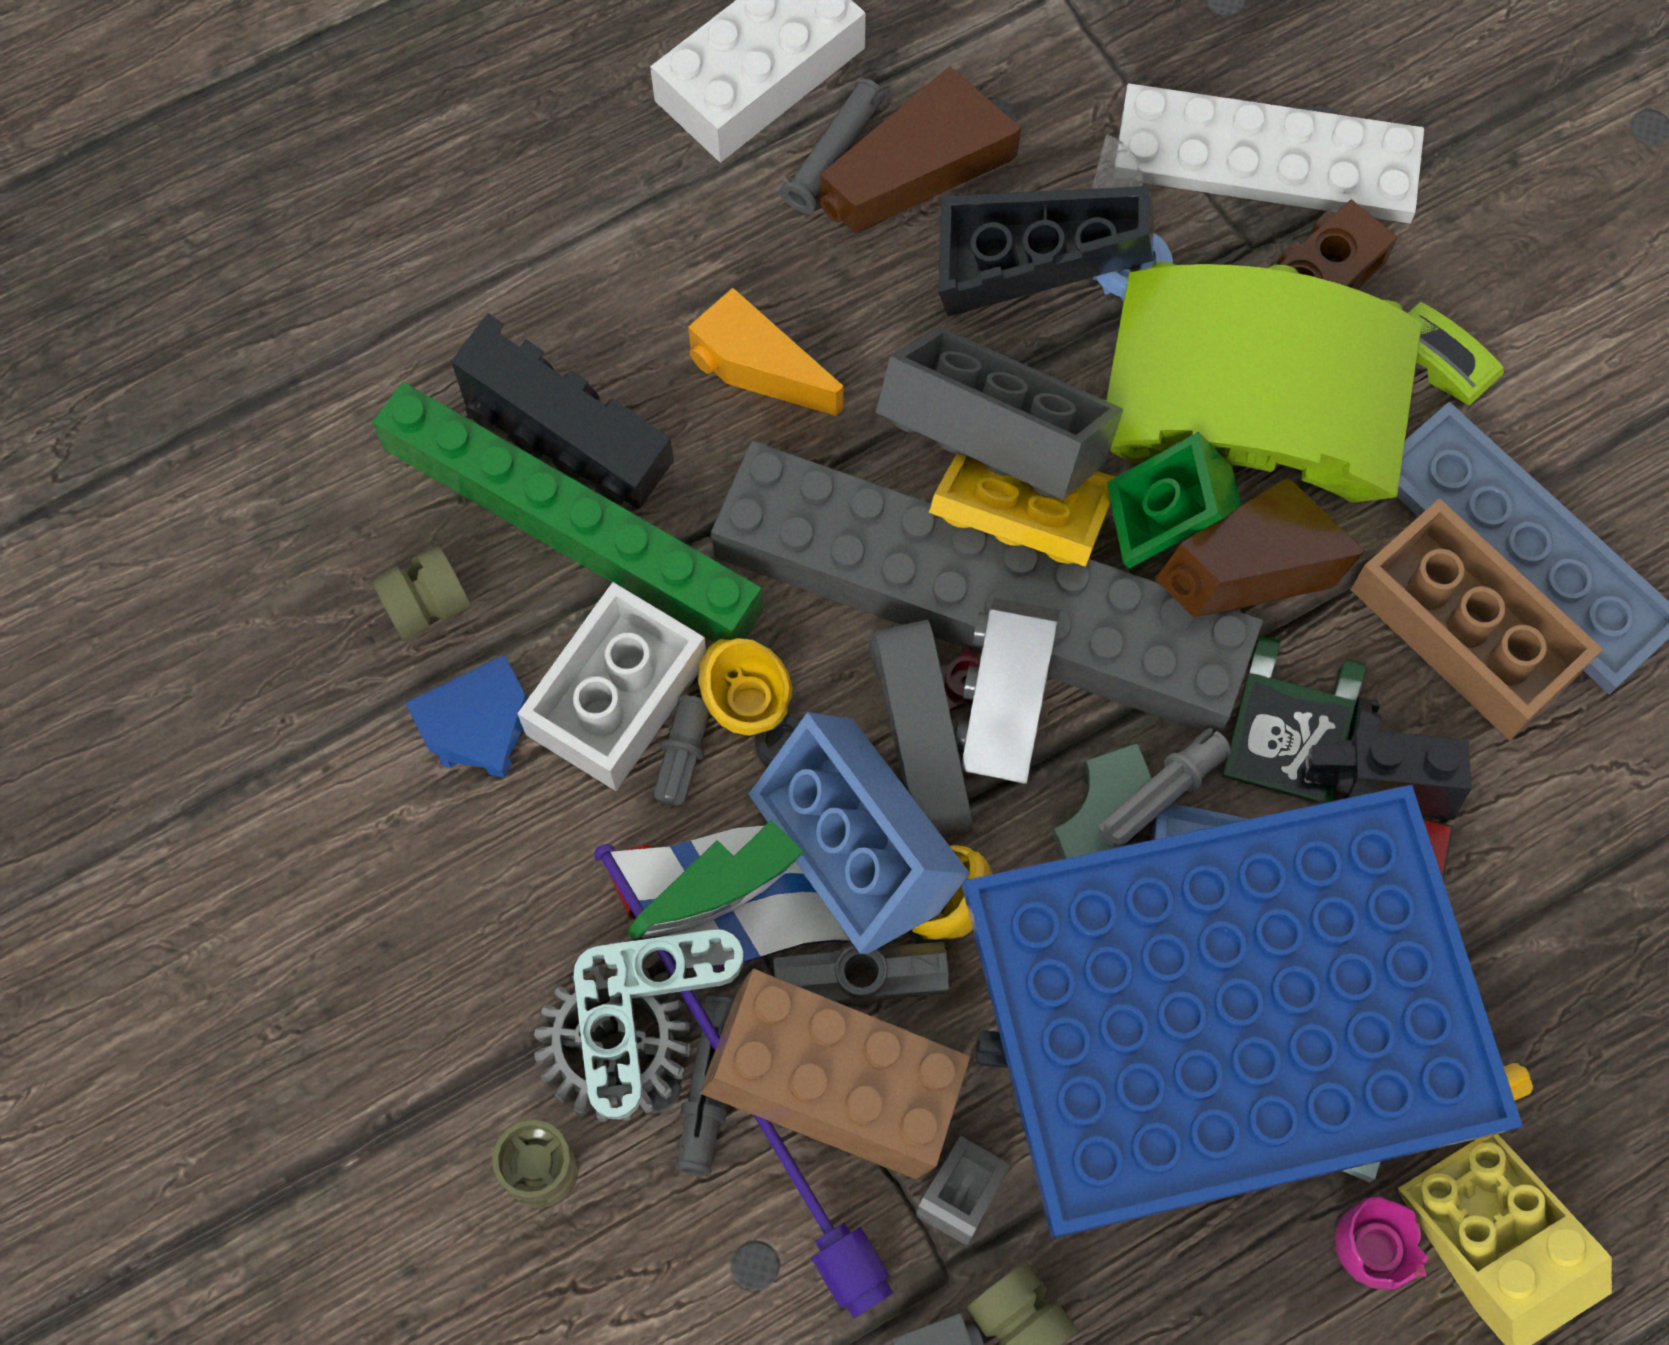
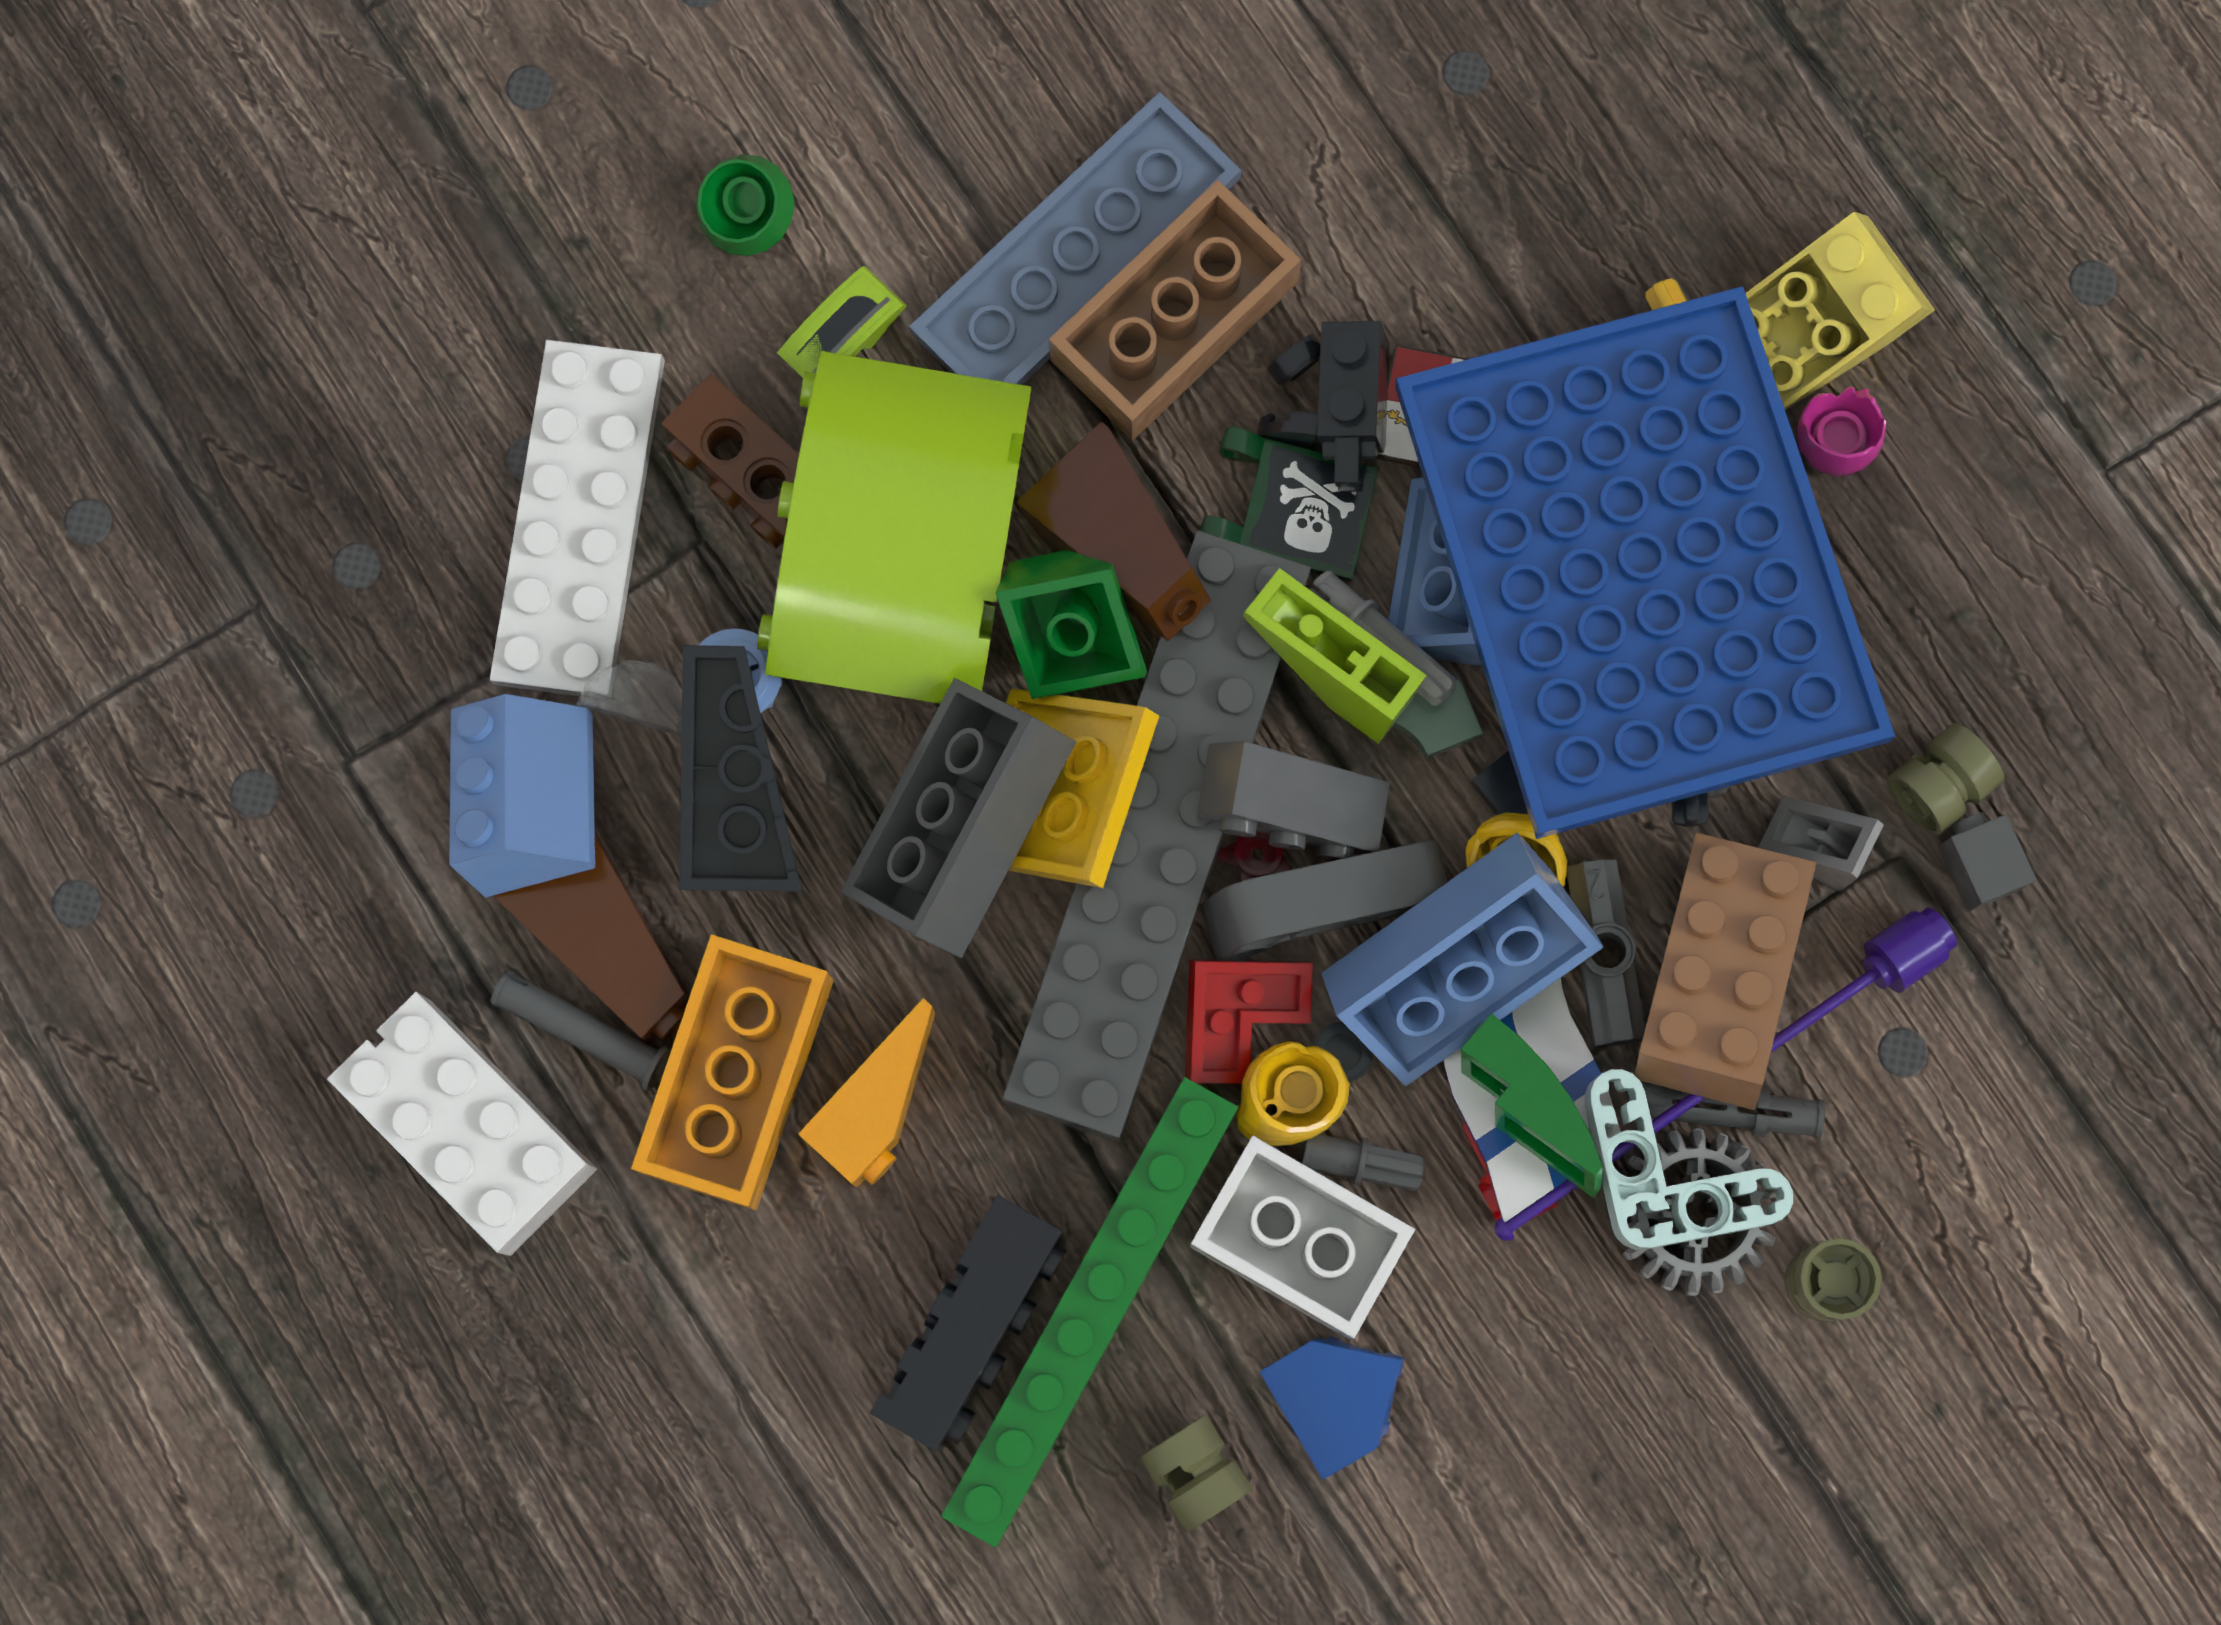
camera: 90 degrees left, 10 degrees up
(787, 245) = (733, 1072): none -> light orange brick
(834, 642) = (1225, 1003): none -> red plate
(1028, 84) = (520, 792): none -> medium blue slope
(1144, 728) = (1334, 656): none -> lime slope
(1429, 722) = (1295, 360): none -> black tile
(1573, 282) = (756, 191): none -> green hat

